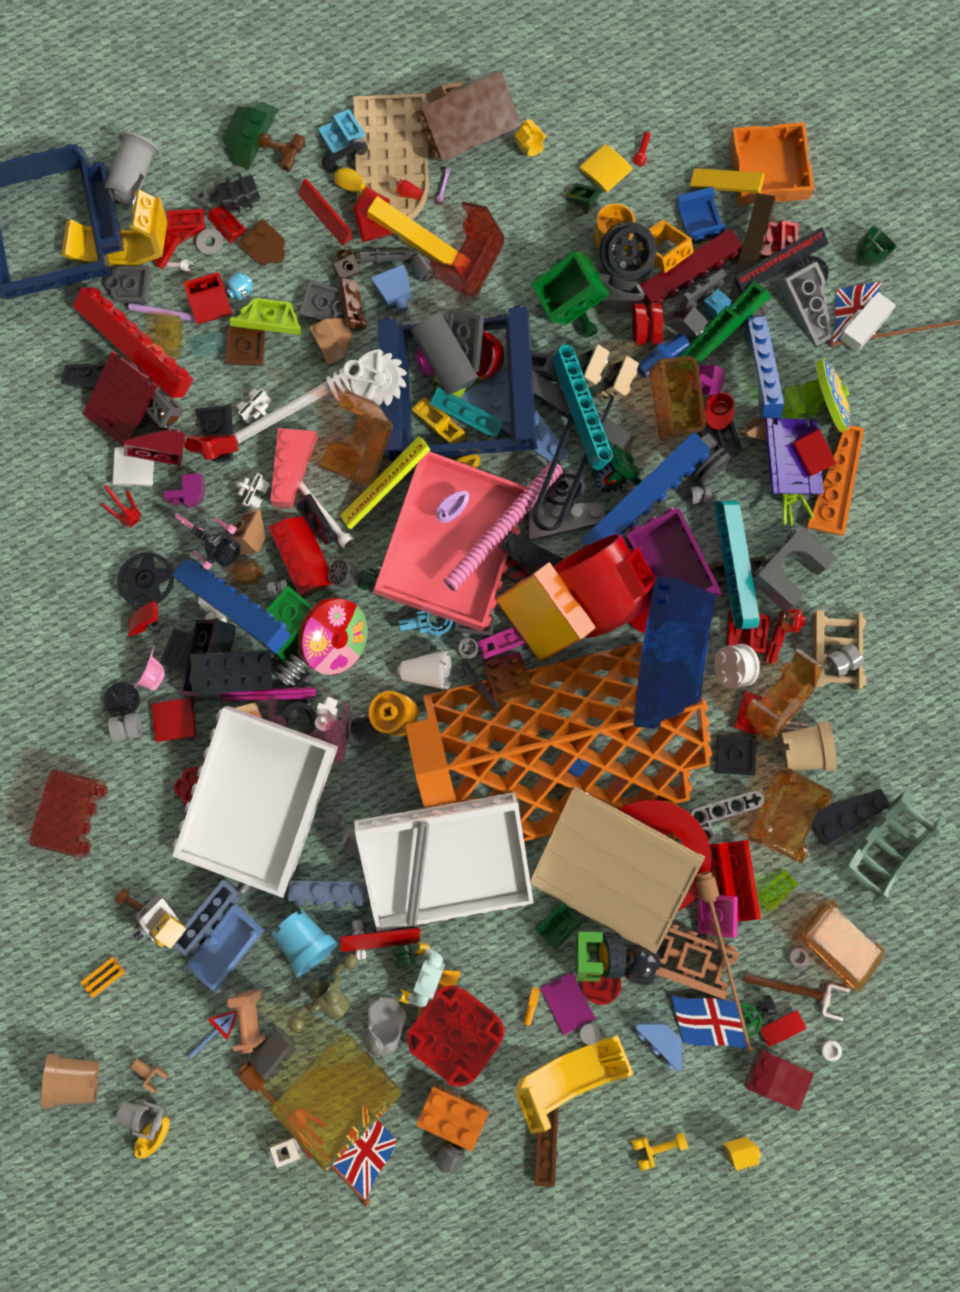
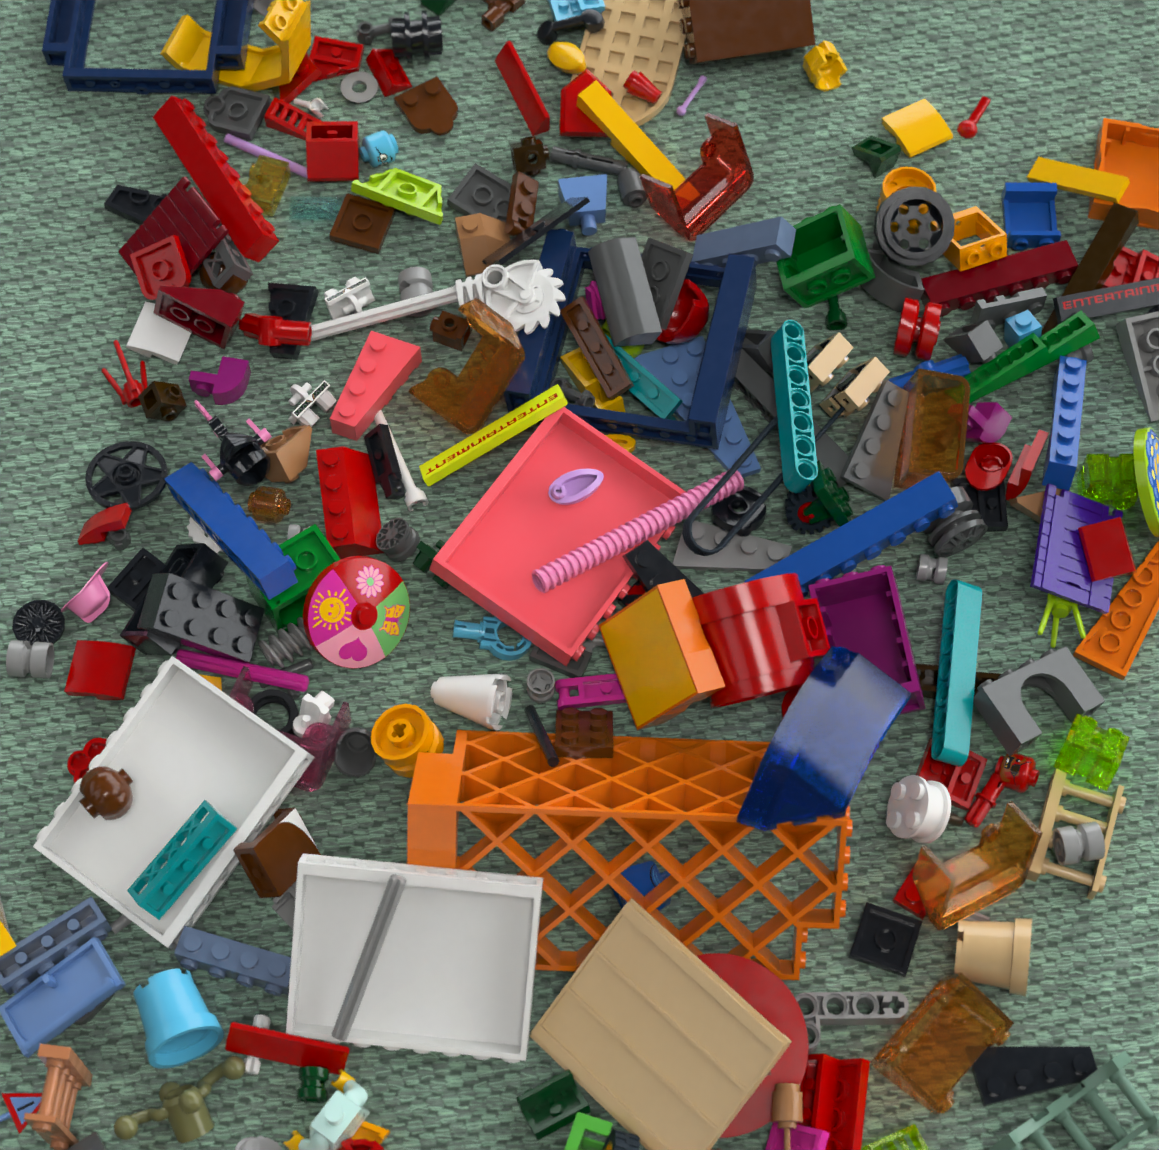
camera: 15 degrees right, 15 degrees down
(119, 422) = (161, 265): none -> red plate
(151, 518) = (162, 401): none -> dark brown brick
(157, 272) = (285, 109): none -> red slope
(209, 811) = (106, 792): none -> reddish brown plant
(275, 843) = (183, 861): none -> teal fence
(297, 384) = (414, 283): none -> light grey wheel
(333, 415) = (456, 332): none -> reddish brown brick
(335, 817) = (275, 853): none -> reddish brown panel
(369, 324) = (535, 231): none -> black container
(436, 400) = (596, 348): none -> reddish brown plate
(437, 438) = (582, 399): none -> dark grey bar
(523, 291) = (763, 239): none -> sand blue brick
(643, 415) = (877, 445): none -> dark grey wing
(746, 405) = (1026, 465): none -> slope
(836, 594) = (1091, 751): none -> clear neon green brick

